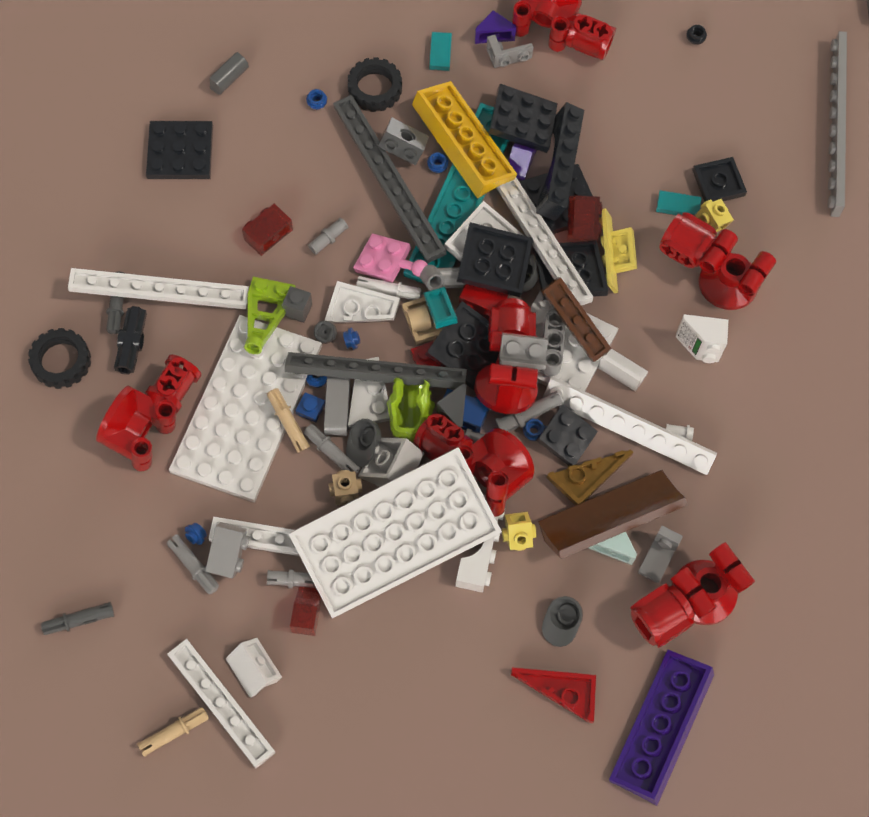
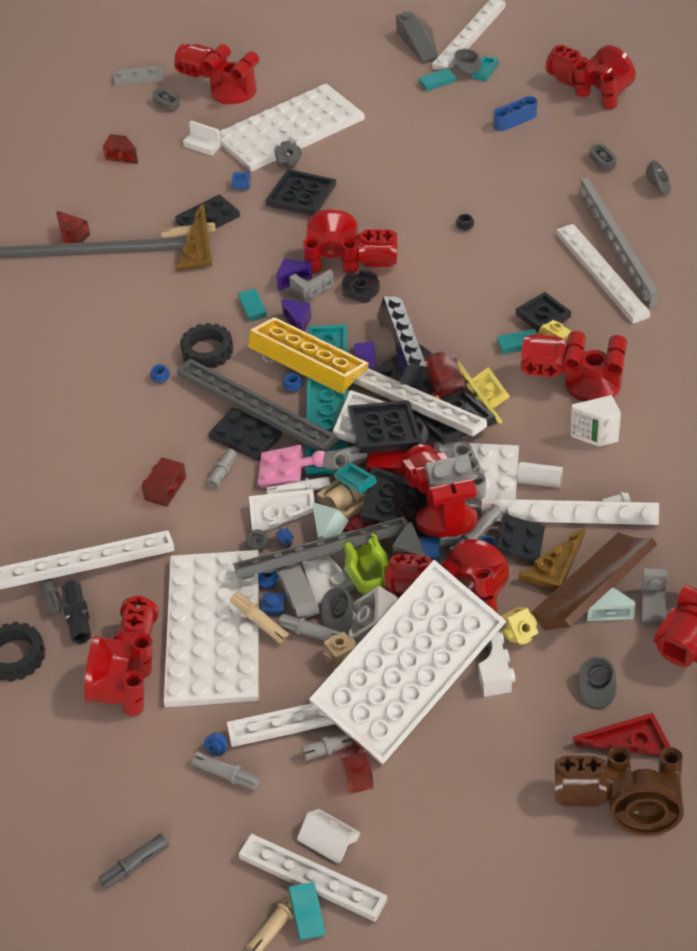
camera: 15 degrees left, 20 degrees down
(179, 150) = (51, 453): black plate -> none
(200, 735) = (306, 911): none -> teal tile
(227, 550) = (254, 741): light grey brick -> none
(228, 73) = (69, 380): dark grey brick -> none
(266, 291) = (192, 528): lime plate -> none
(297, 304) = (221, 527): dark grey brick -> none
(366, 204) = (245, 434): none -> black plate
(396, 343) = (328, 521): none -> light aqua slope
(403, 141) = (255, 373): dark grey brick -> none
(478, 84) = (296, 313): none -> dark purple slope
(523, 118) = (351, 323): black plate -> none
(531, 758) = (640, 800): none -> reddish brown piece
(553, 82) = (352, 286): none -> black plate
(576, 319) = (481, 441): reddish brown plate -> none
(804, 155) = (603, 274): none -> white plate

